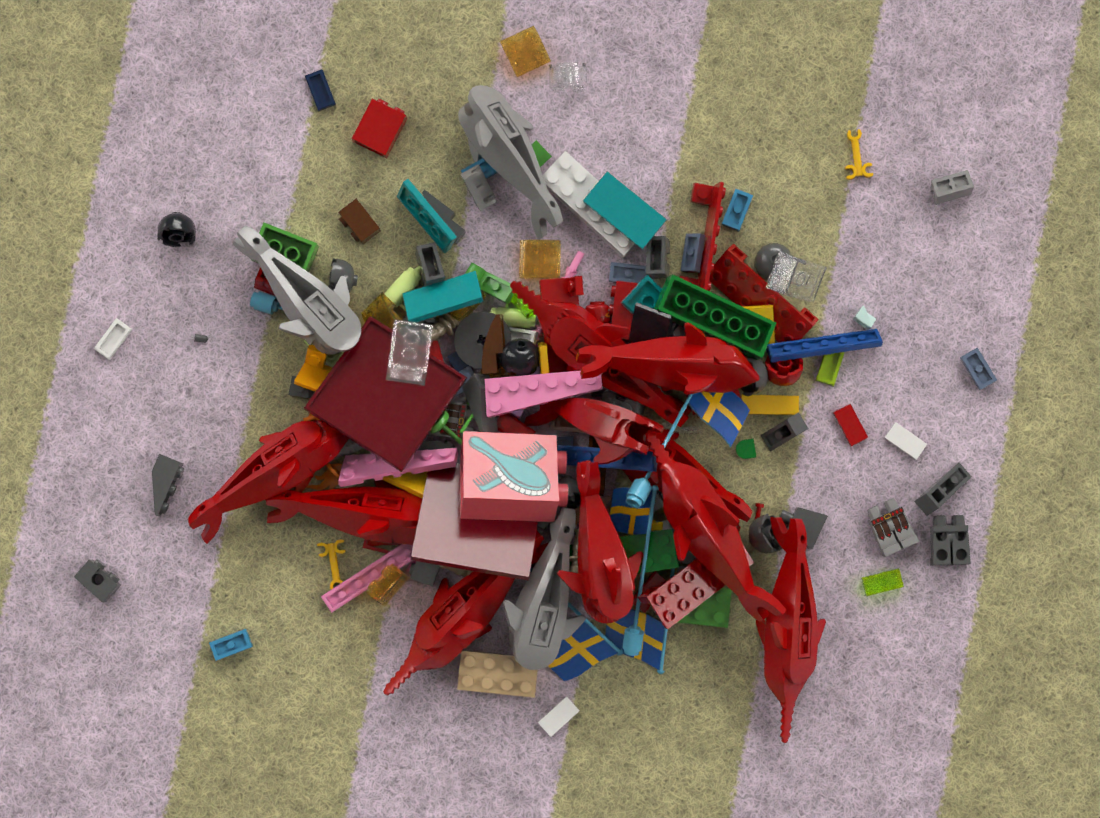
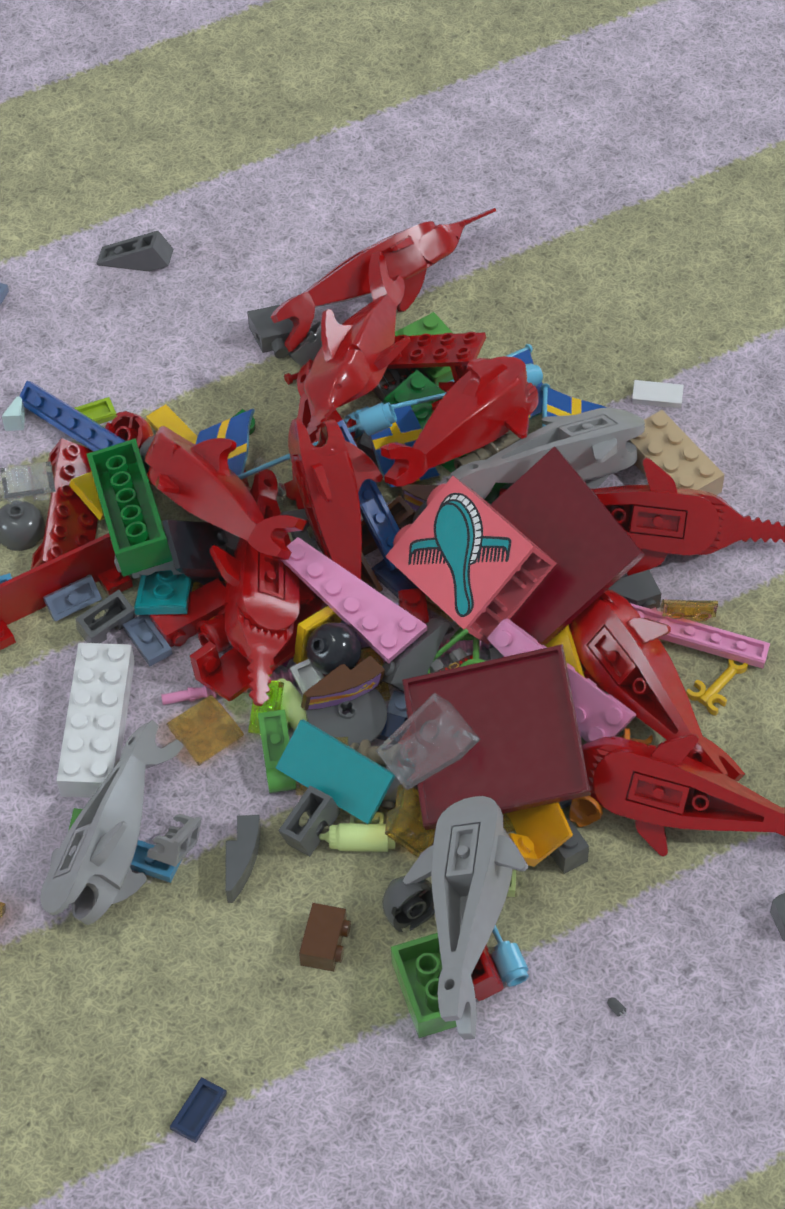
camera: 130 degrees left, 30 degrees down
(113, 339) = (710, 1100): white tile -> none
(172, 230) = (514, 1128): black cylinder -> none
(379, 127) = (190, 1001): red brick -> none
(426, 216) = (255, 865): teal tile -> none
(624, 210) = (79, 671): teal tile -> none
(784, 431) = (194, 401): dark grey slope -> none
(850, 425) = (137, 361): red tile -> none
(882, 582) = (270, 243): clear neon green plate -> none
(891, 522) = (212, 266): light grey hips -> none
(905, 441) = (113, 312): white tile -> none
(949, 543) = (183, 218): dark grey hips -> none

